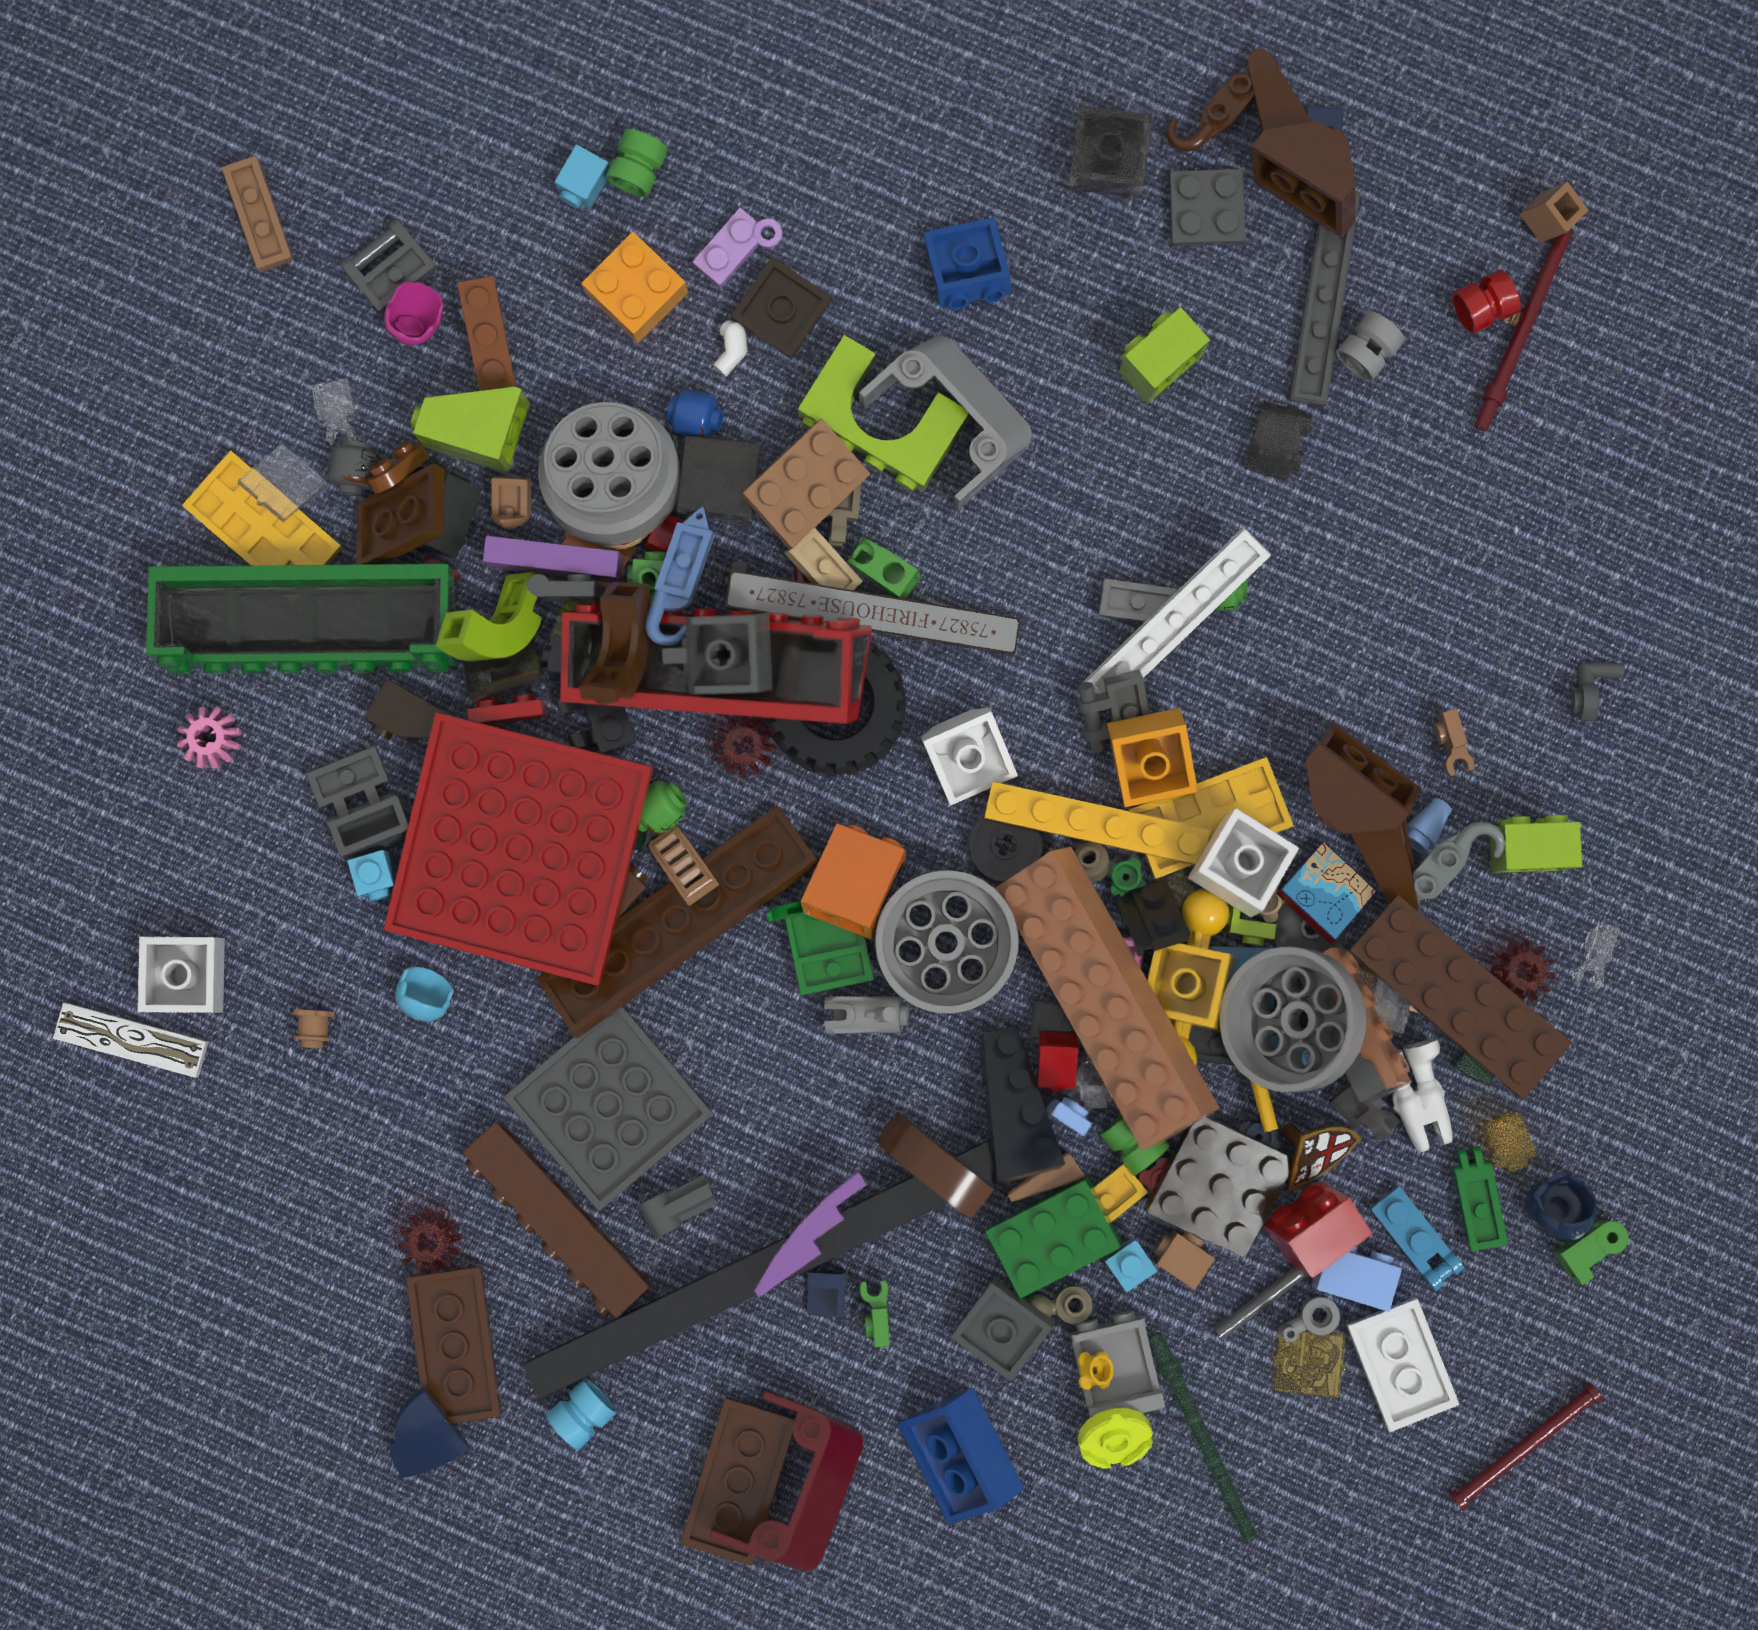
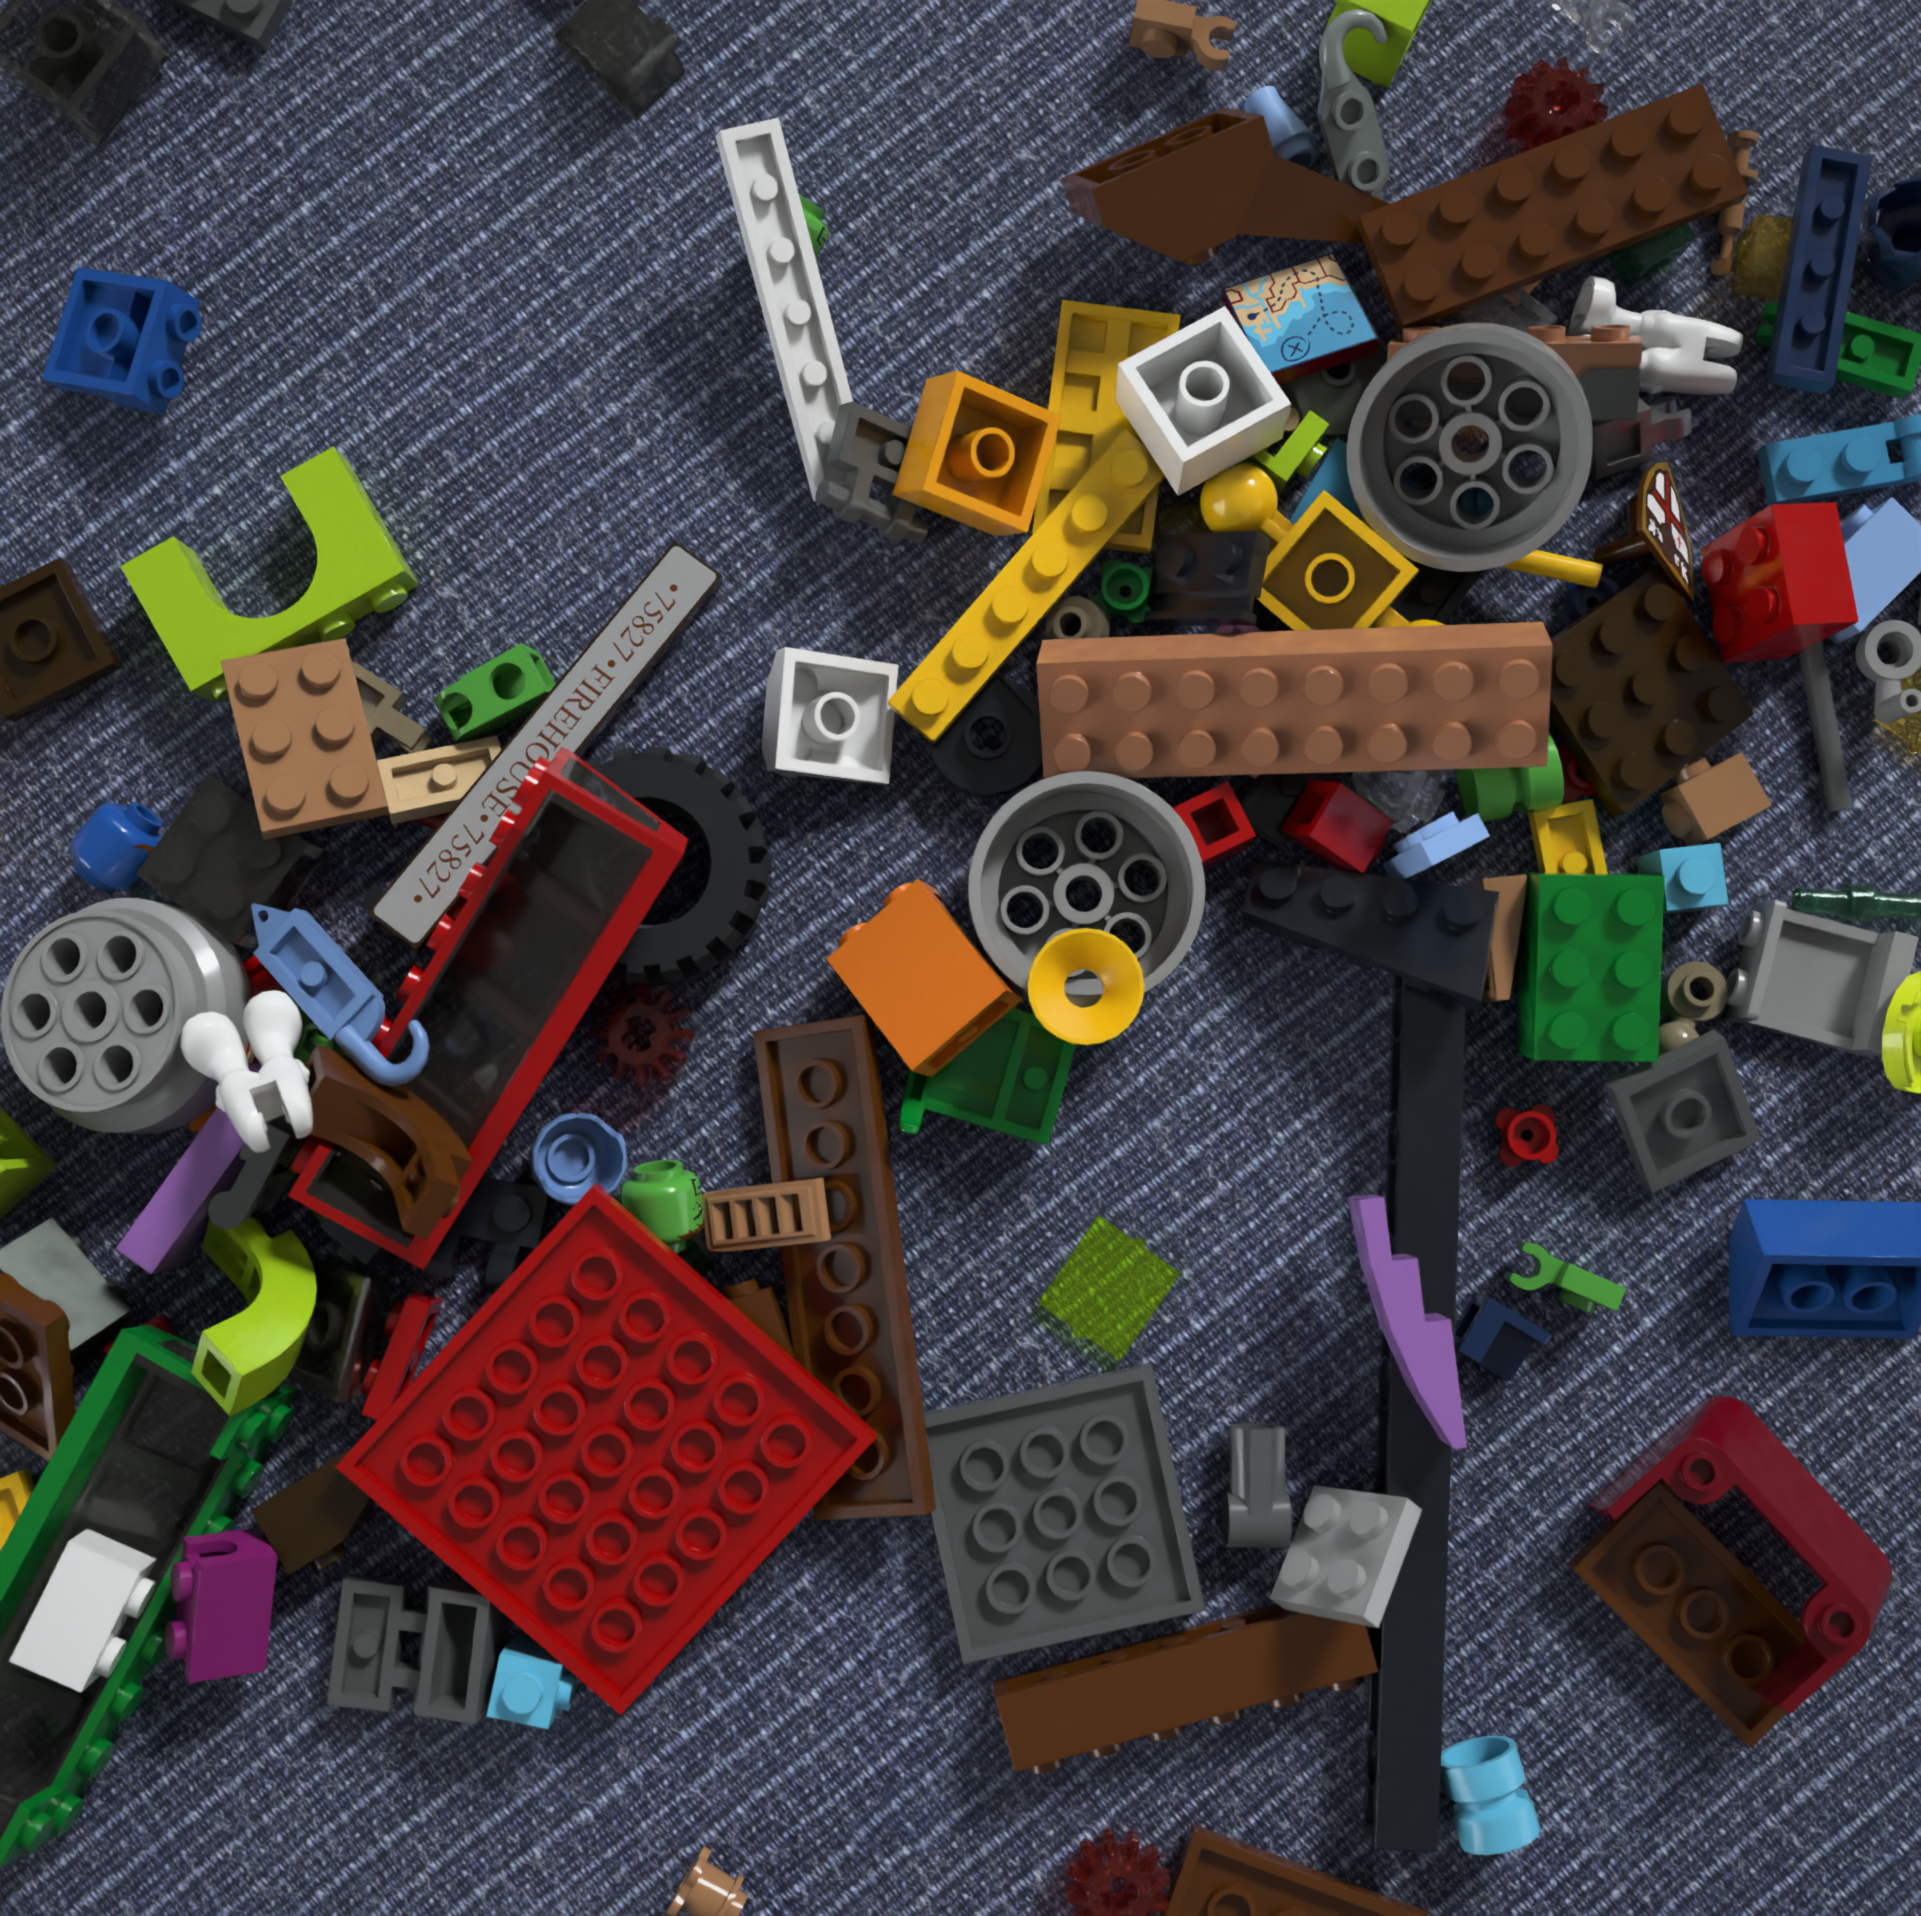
camera: 65 degrees left, 0 degrees up
(206, 724) = (174, 1834): bright pink gear -> none
(293, 623) = (84, 1611): none -> white brick
(331, 691) = (222, 1604): none -> magenta brick
(423, 994) = (748, 1702): medium azure hair -> none
(510, 501) = (96, 1183): medium nougat plate -> none
(603, 568) = (251, 1098): none -> white piece
(660, 746) = (575, 1154): none -> medium blue hair
(668, 1267) = (1346, 1555): none -> light grey plate
(705, 660) = (458, 1012): dark grey hinge -> none
(735, 347) = (57, 737): white arm -> none
(742, 1070) = (1109, 1287): none -> clear neon green piece
(866, 1014) = (1126, 1069): light grey piece -> none
(892, 946) = (1113, 965): none -> yellow piece
(934, 1166) = (1401, 1084): reddish brown arch -> none
(942, 1263) = (1542, 1142): none -> red plate
(1003, 429) = (390, 421): light grey windscreen -> none
(1019, 992) = (1216, 824): none -> red brick
(1102, 1370) = (1808, 1010): yellow plate -> none
(1131, 600) = (735, 369): flat silver plate -> none
(1163, 355) = (404, 127): lime brick -> none
(1505, 1161) = (1818, 269): none -> dark blue plate
(1535, 1096) = (1731, 218): none -> medium nougat piece

